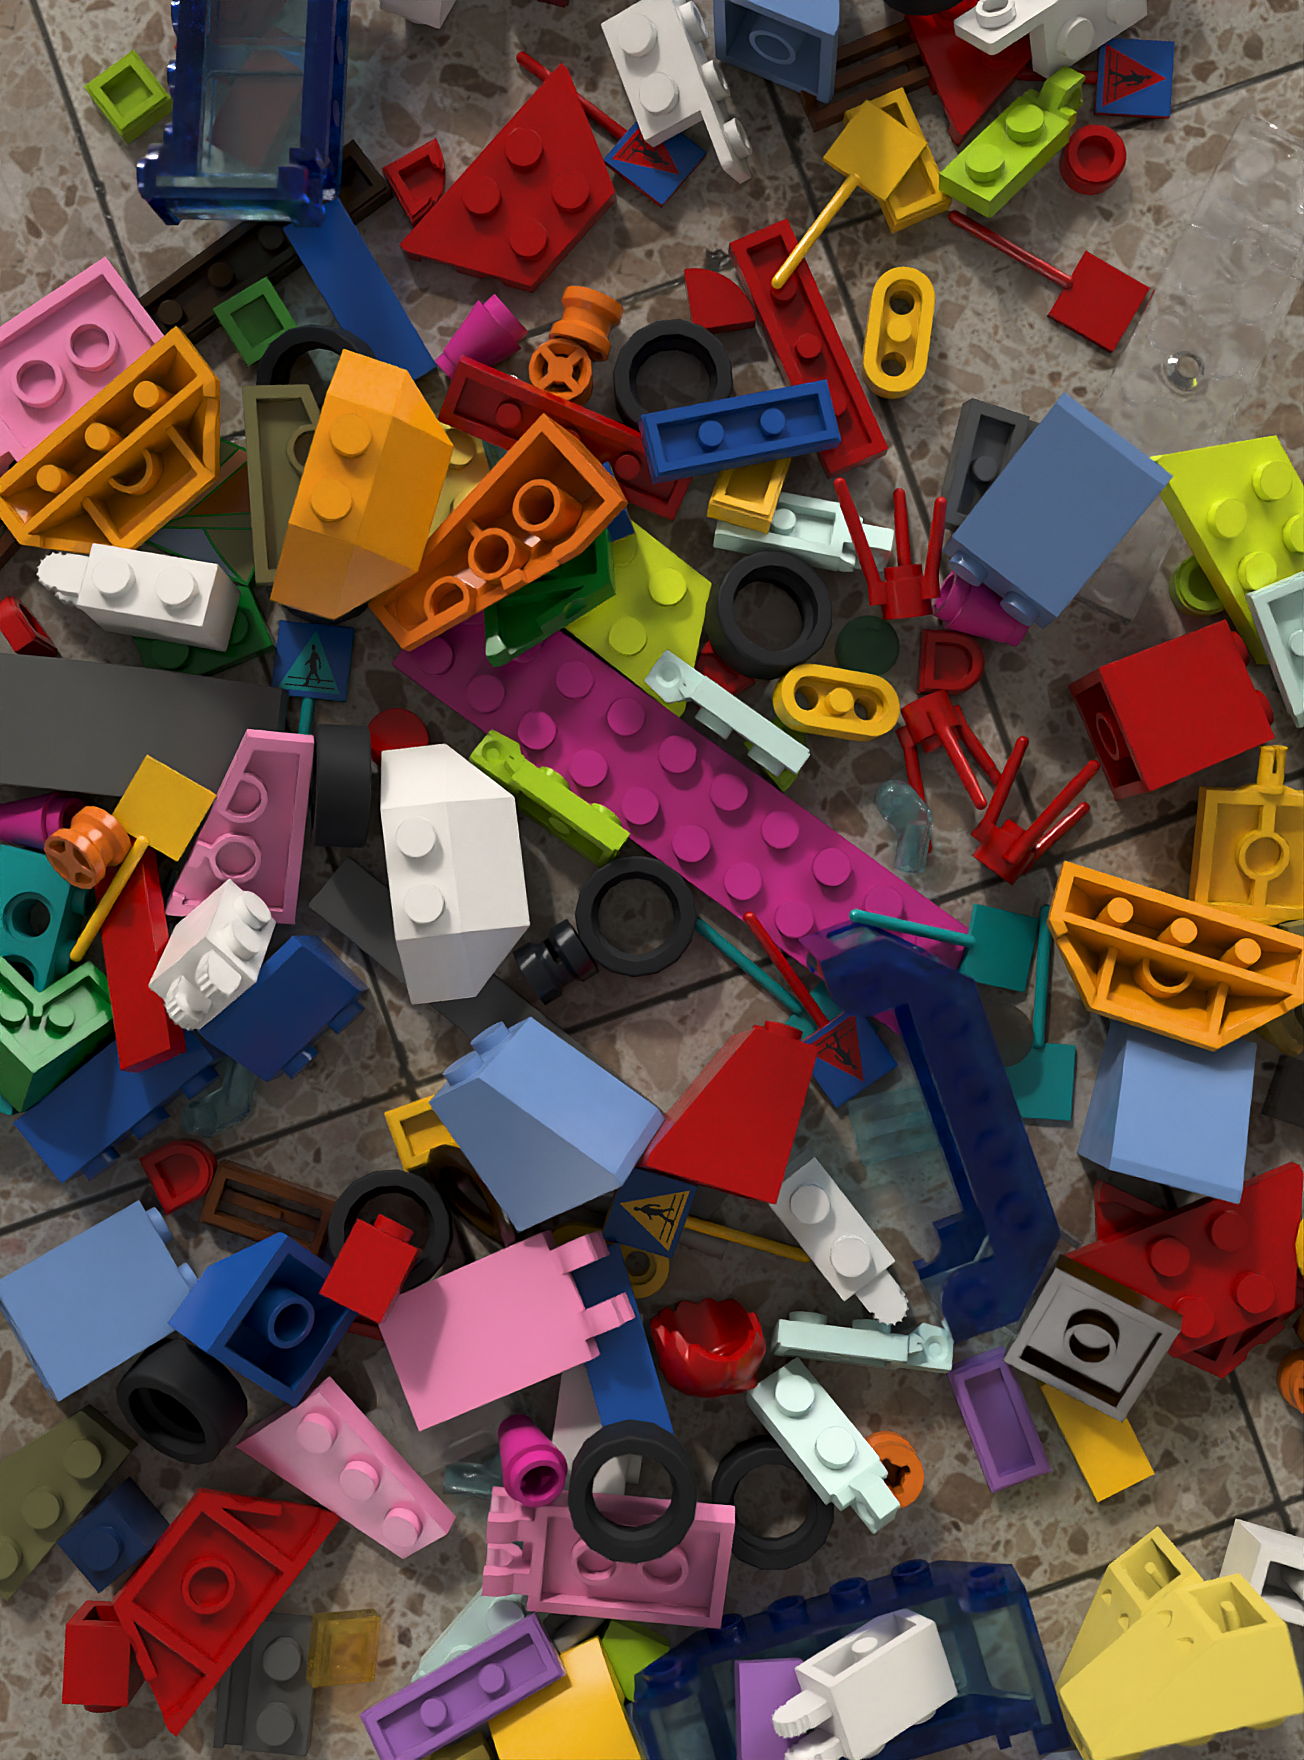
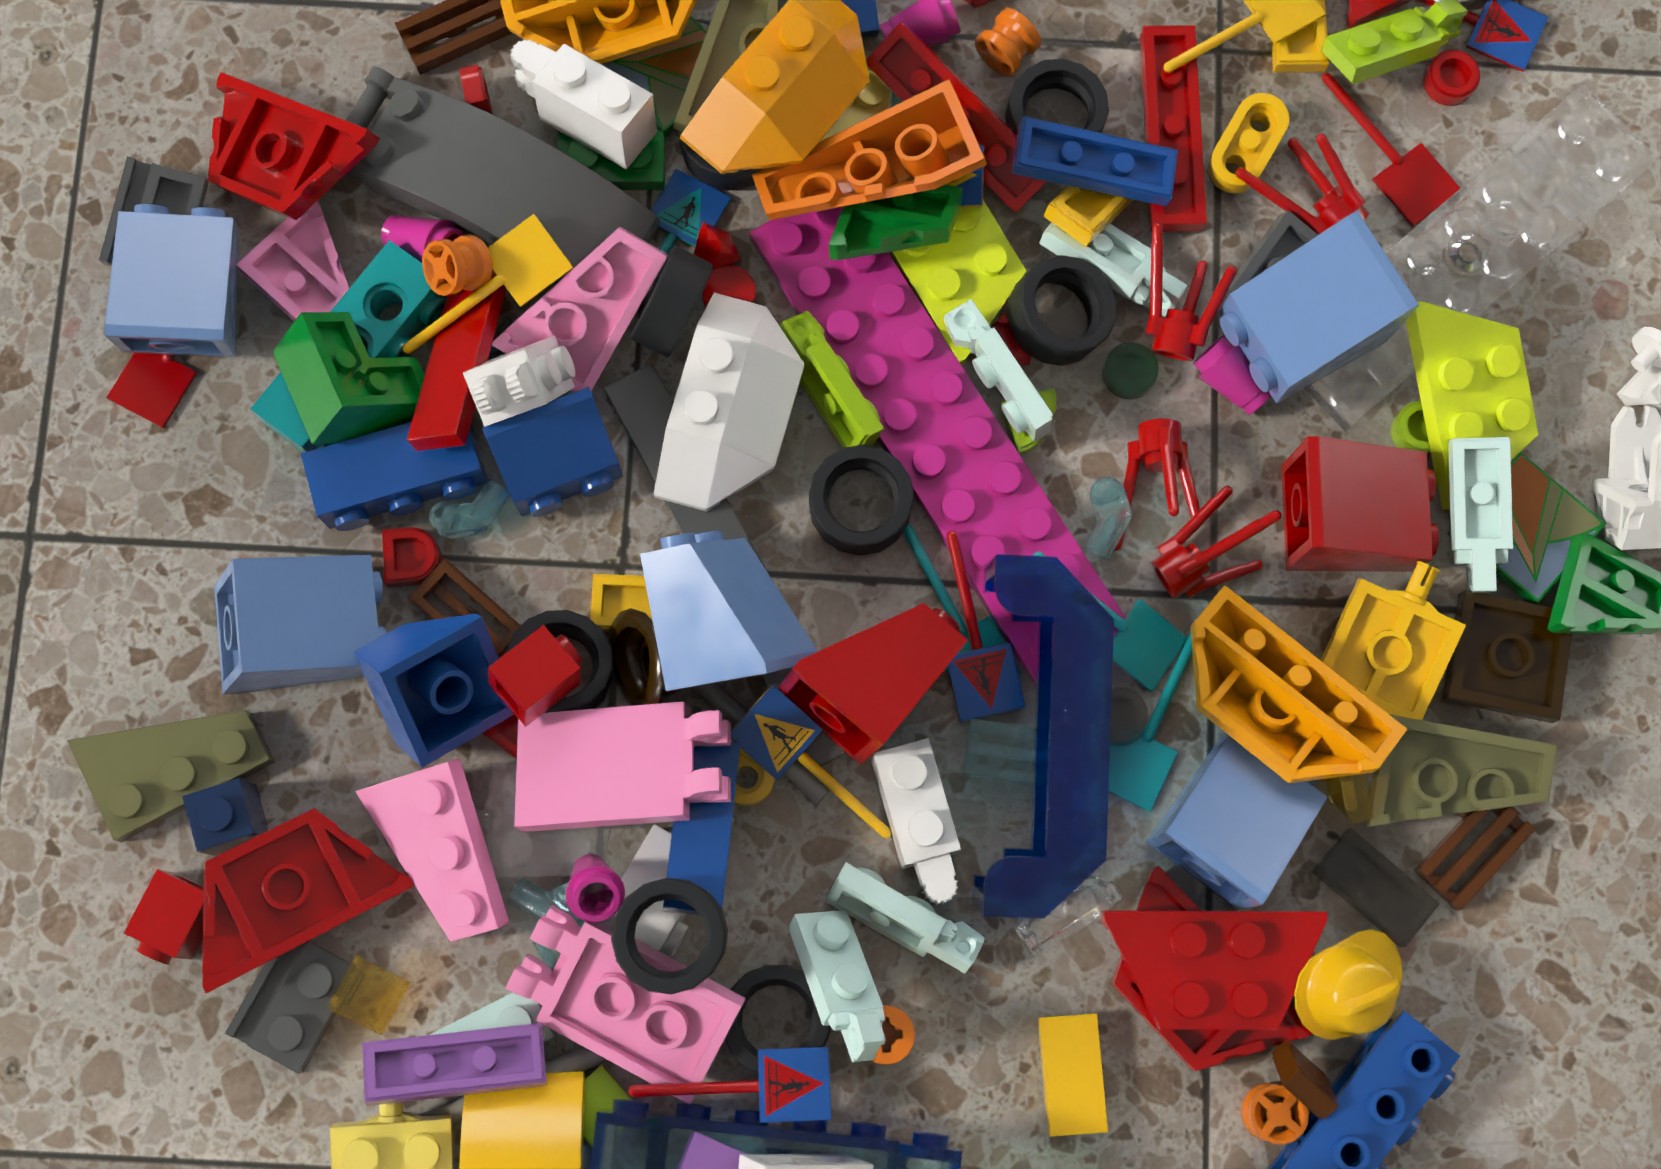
camera: 20 degrees right, 10 degrees down
(182, 1401) = (359, 721): black tyre -> none
(361, 698) = (716, 246): none -> red rock
(543, 970) = (782, 509): black wheel -> none
(554, 364) = (978, 62): orange wheel -> none
(708, 1347) = (777, 867): red hair -> none
(717, 302) = (1116, 67): red tile -> none
(815, 1571) = (790, 1085): none -> piece
(831, 702) = (1086, 394): yellow plate -> none
(948, 662) = (1194, 406): red tile -> none
(997, 1420) = (992, 1034): medium lavender tile -> none
(1026, 370) = (1336, 202): none -> red plant
(1092, 1338) = (1098, 981): plate -> none

